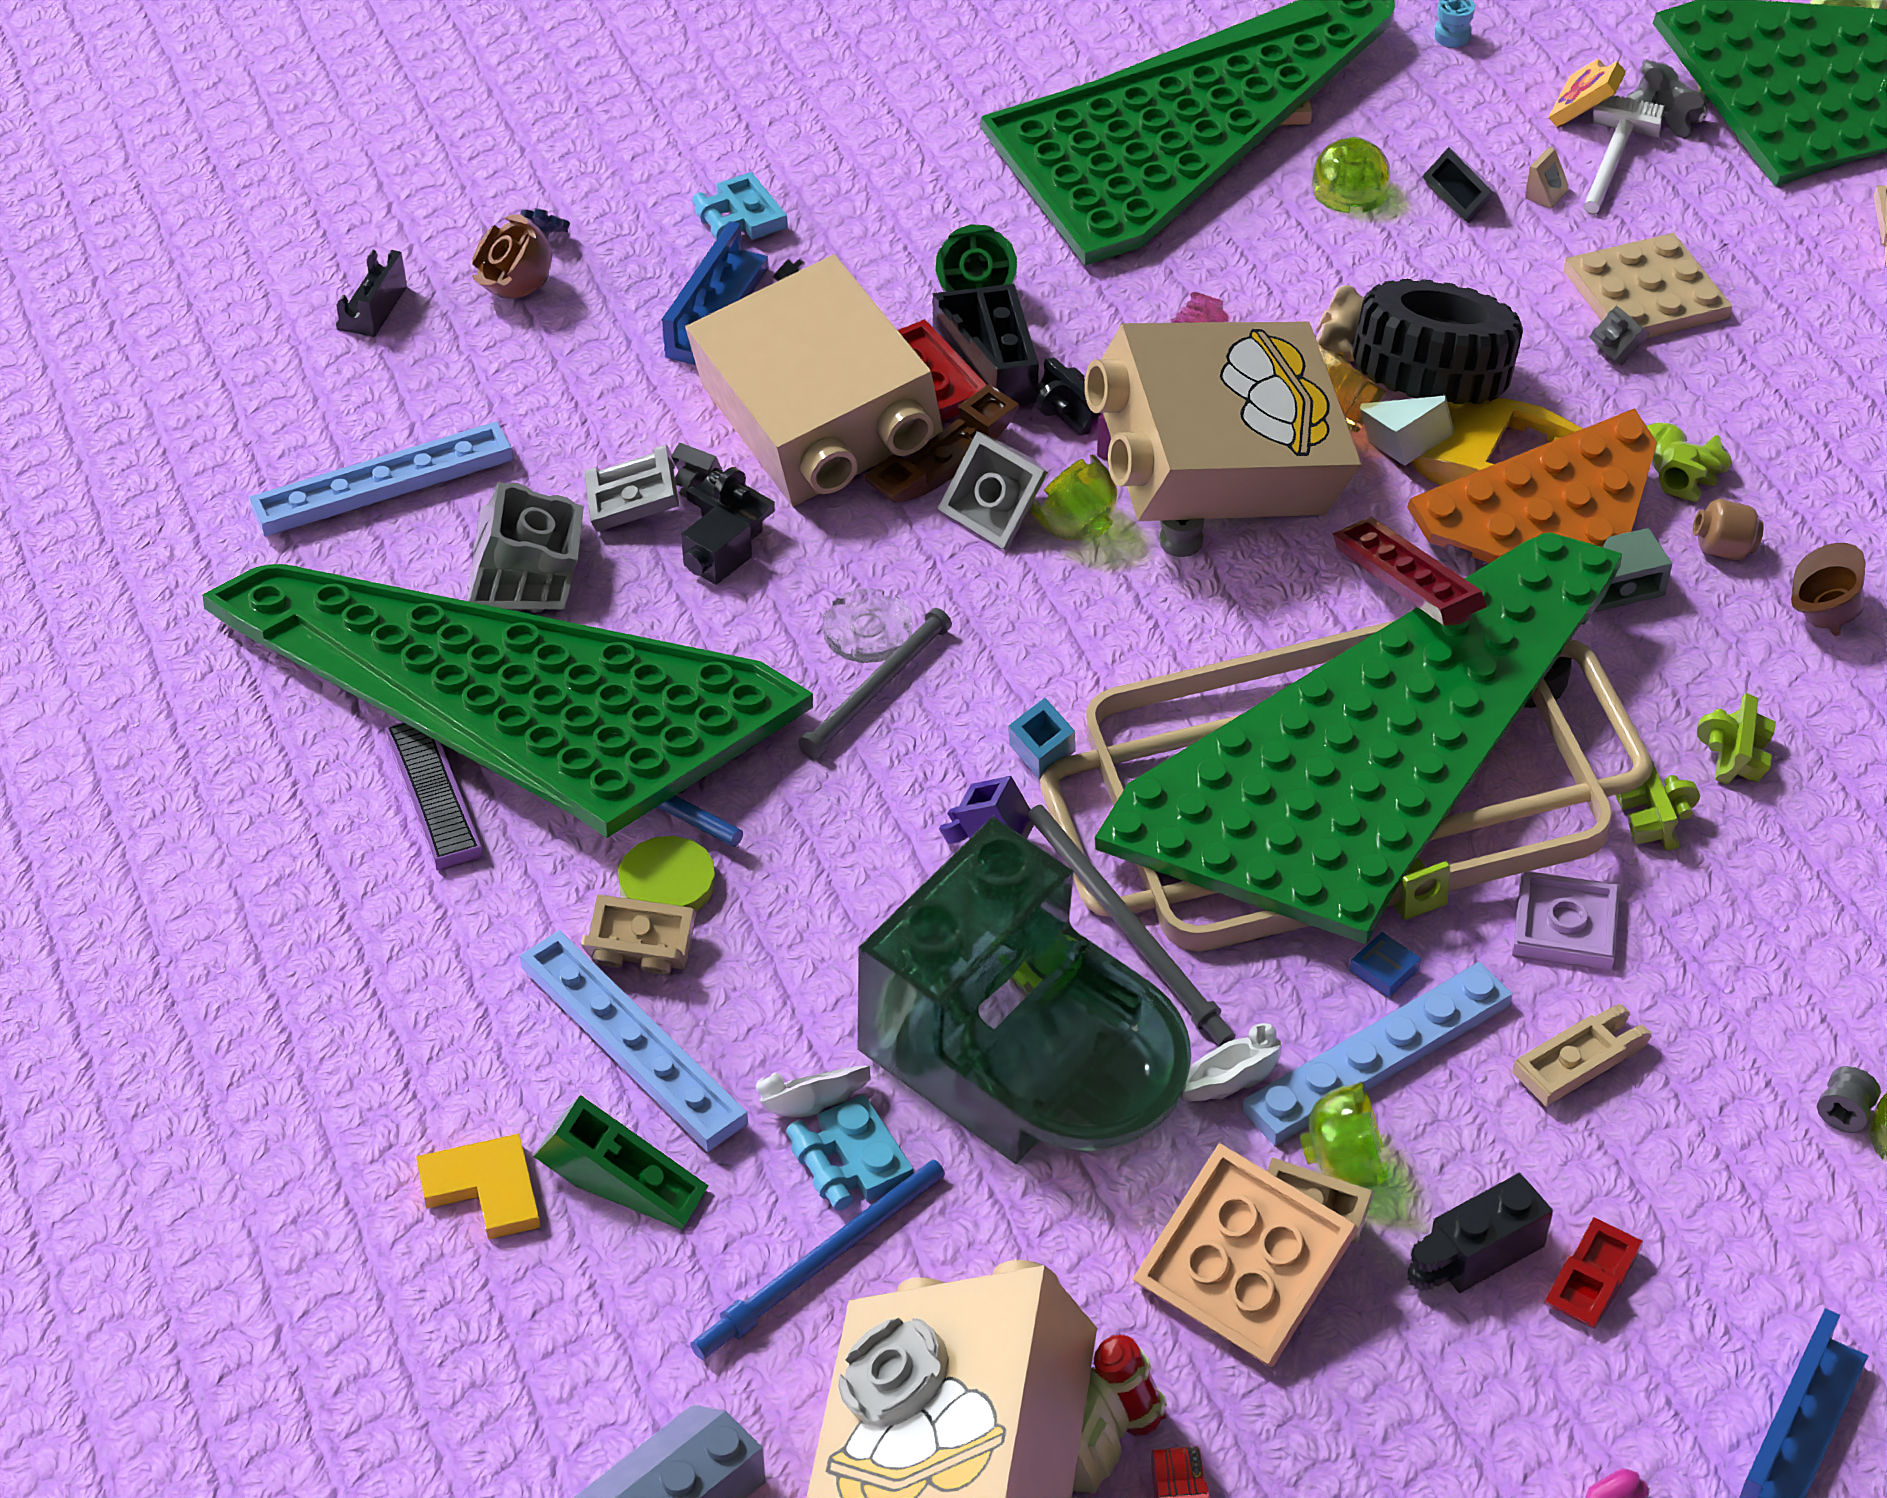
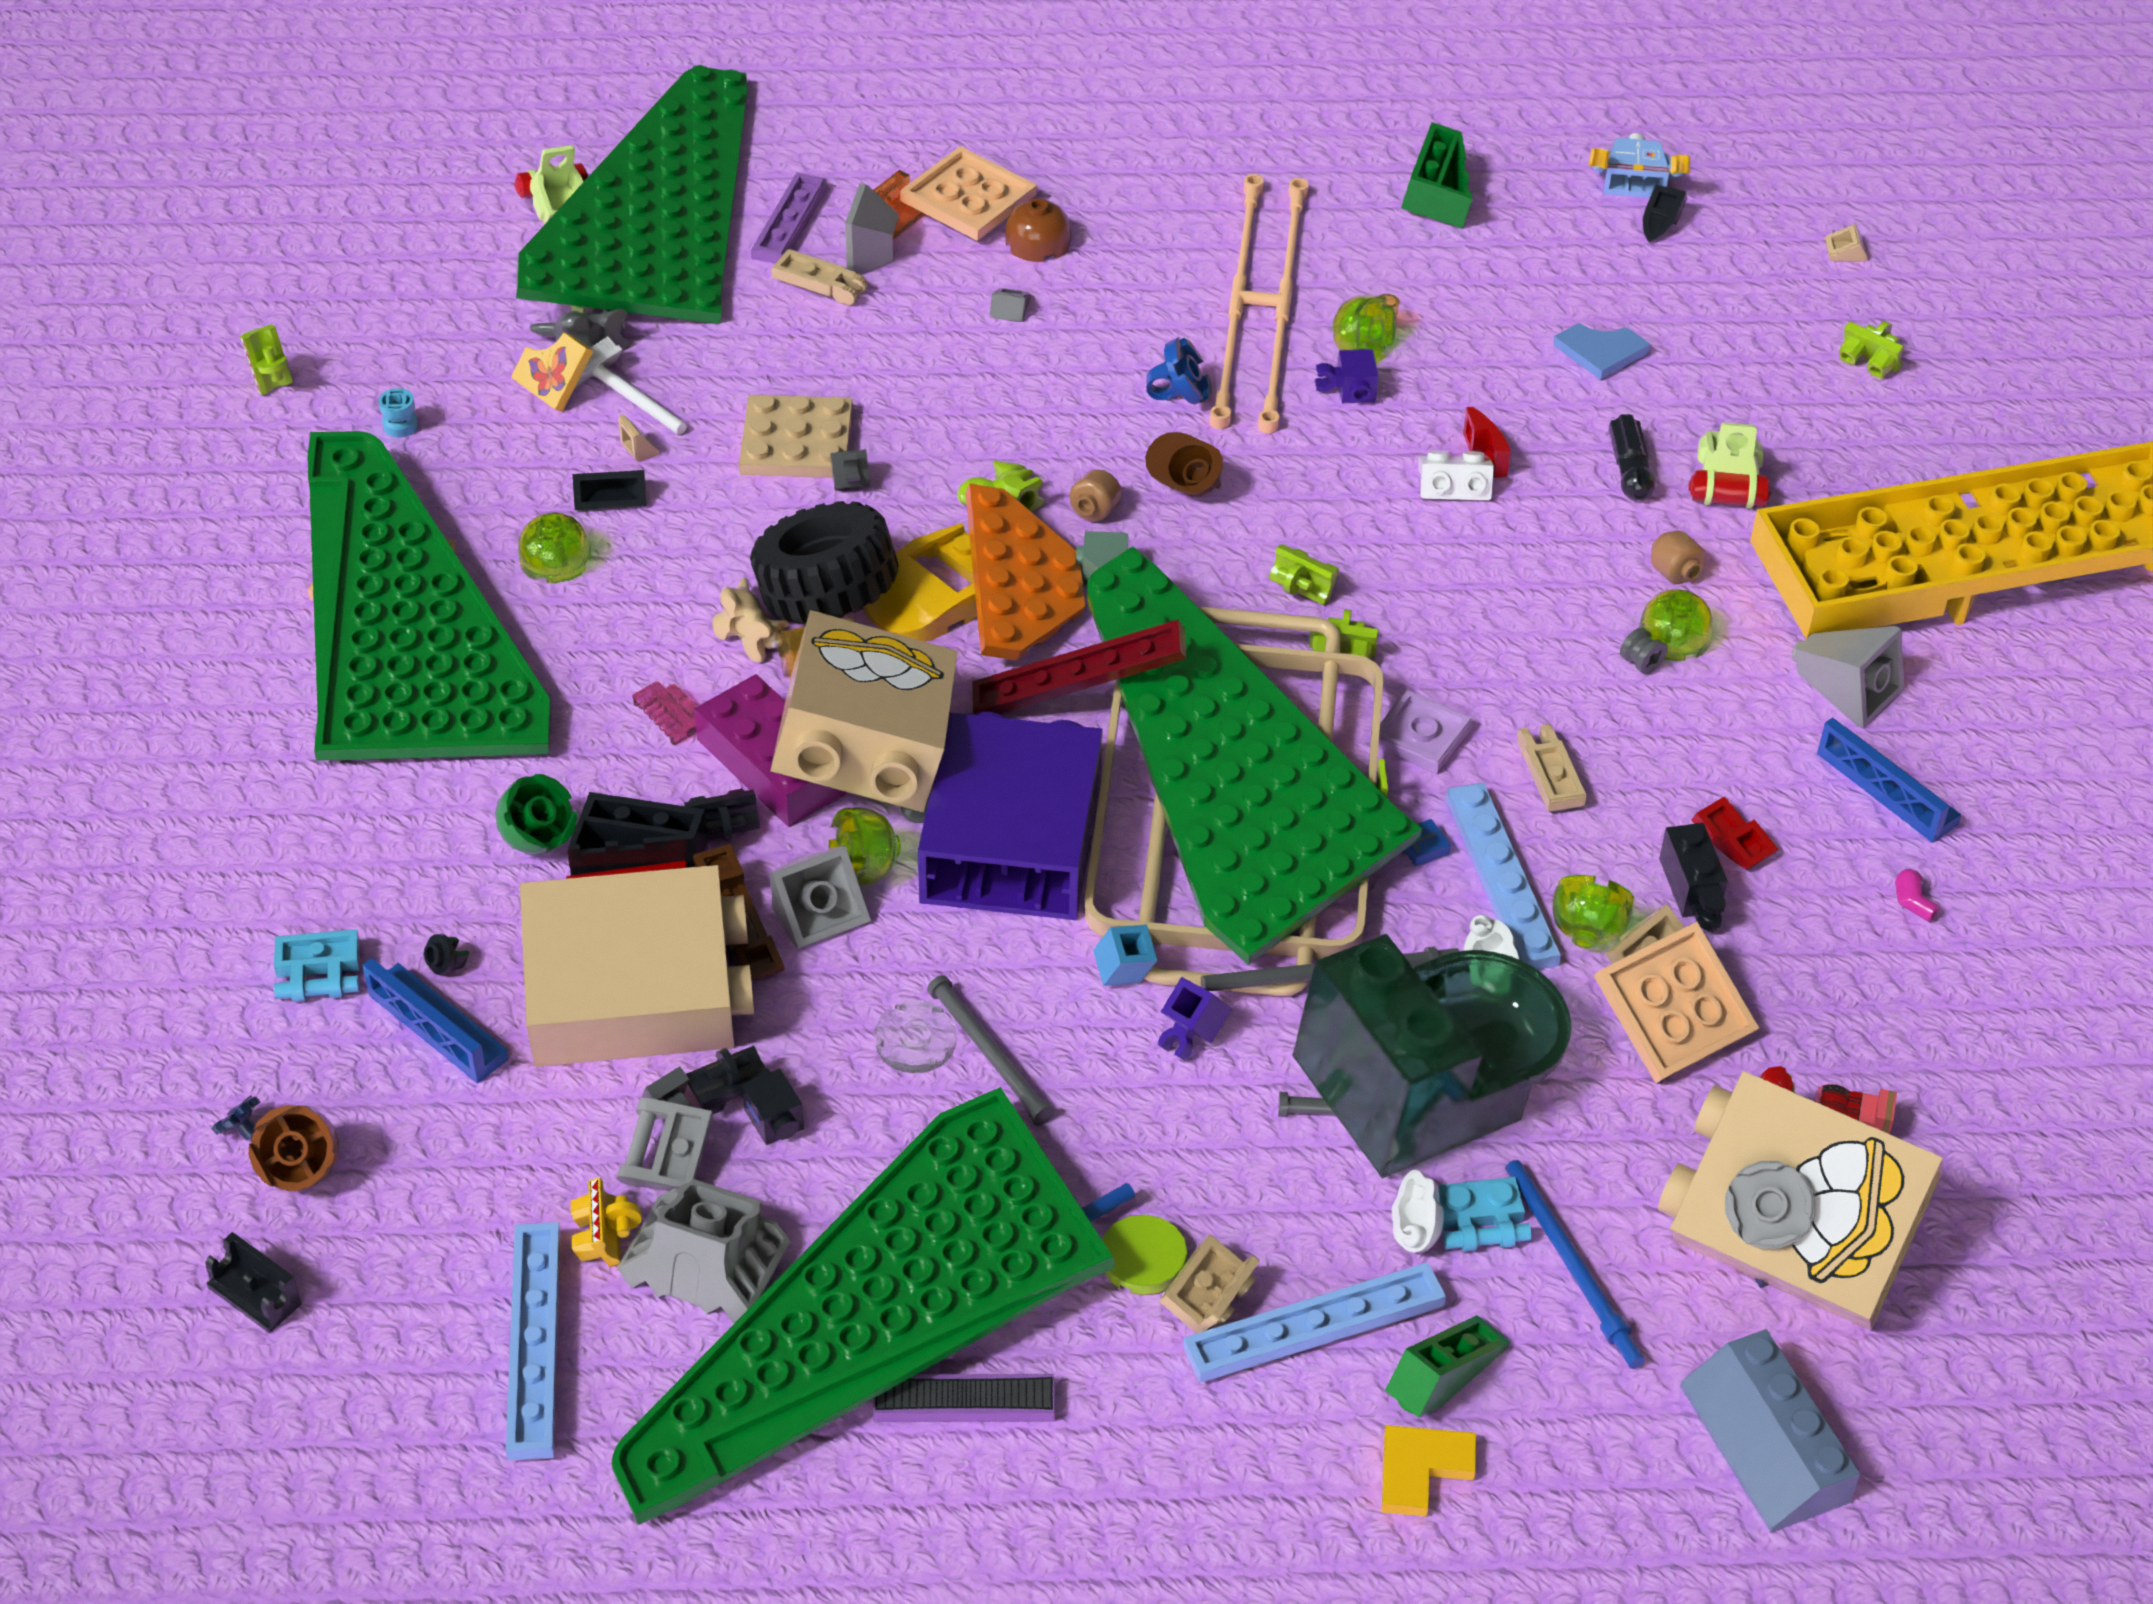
camera: 70 degrees left, 0 degrees up
(538, 469) = (608, 1220): none -> yellow hips
(1184, 583) = (1011, 816): none -> dark purple brick
(1407, 426) = (895, 613): light aqua slope -> none

